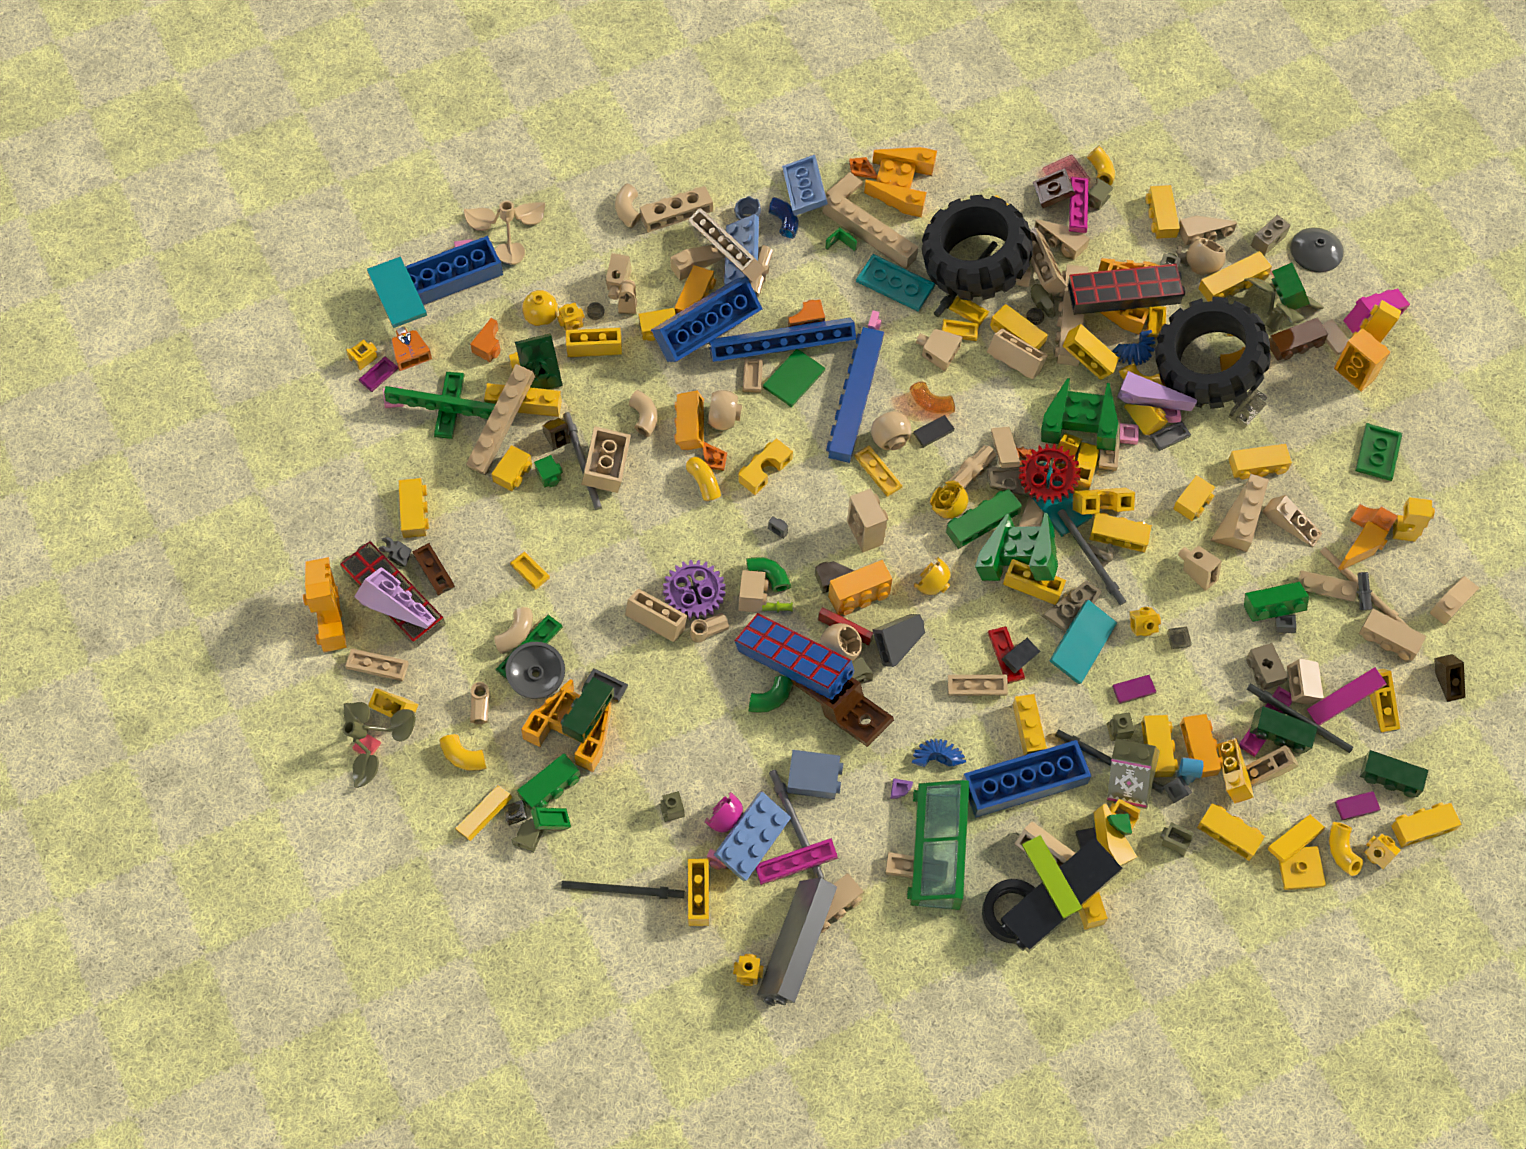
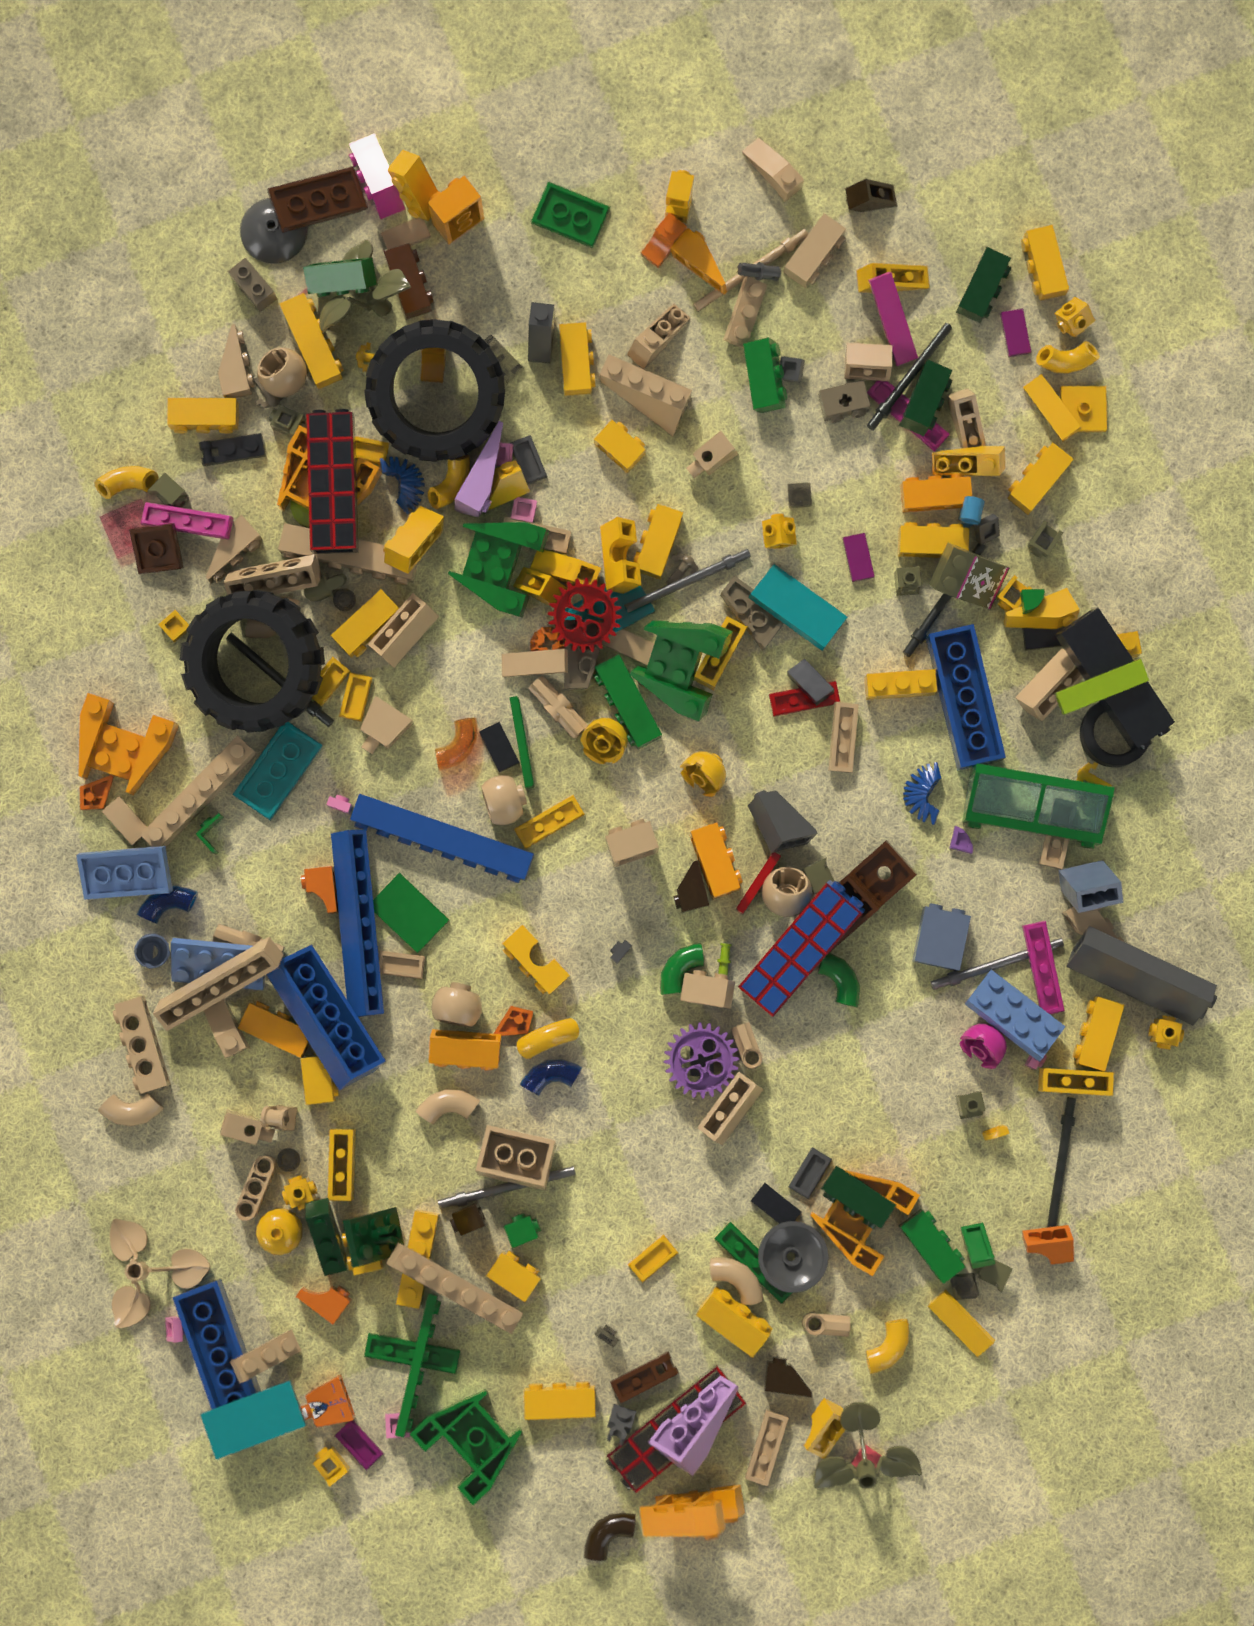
camera: 85 degrees left, 20 degrees up
(304, 544) = (605, 1531): none -> dark brown cylinder
(382, 448) = (474, 1437): none -> green wedge
(433, 674) = (784, 1379): none -> dark brown slope
(445, 300) = (265, 1356): none -> tan plate
(466, 538) = (607, 1334): none -> clear smoke plate
(480, 630) = (734, 1321): none -> yellow brick
(547, 322) = (326, 1236): none -> dark green brick
(555, 880) = (1051, 1242): none -> orange arch
(566, 286) = (247, 1195): none -> tan beam
(578, 659) = (775, 1204): none -> black tile
(650, 832) = (995, 1132): none -> yellow tile
(675, 482) = (550, 1071): none -> clear blue cylinder
(742, 912) = (1098, 1033): none -> yellow brick
(872, 889) = (1090, 886): none -> sand blue brick
(939, 444) = (522, 742): none -> green tile
(972, 887) = (1084, 774): none -> yellow piece
(1139, 234) = (233, 449): none -> black plate
(1277, 429) = (541, 332): none -> dark grey slope
(1347, 271) = (317, 199): none -> reddish brown tile

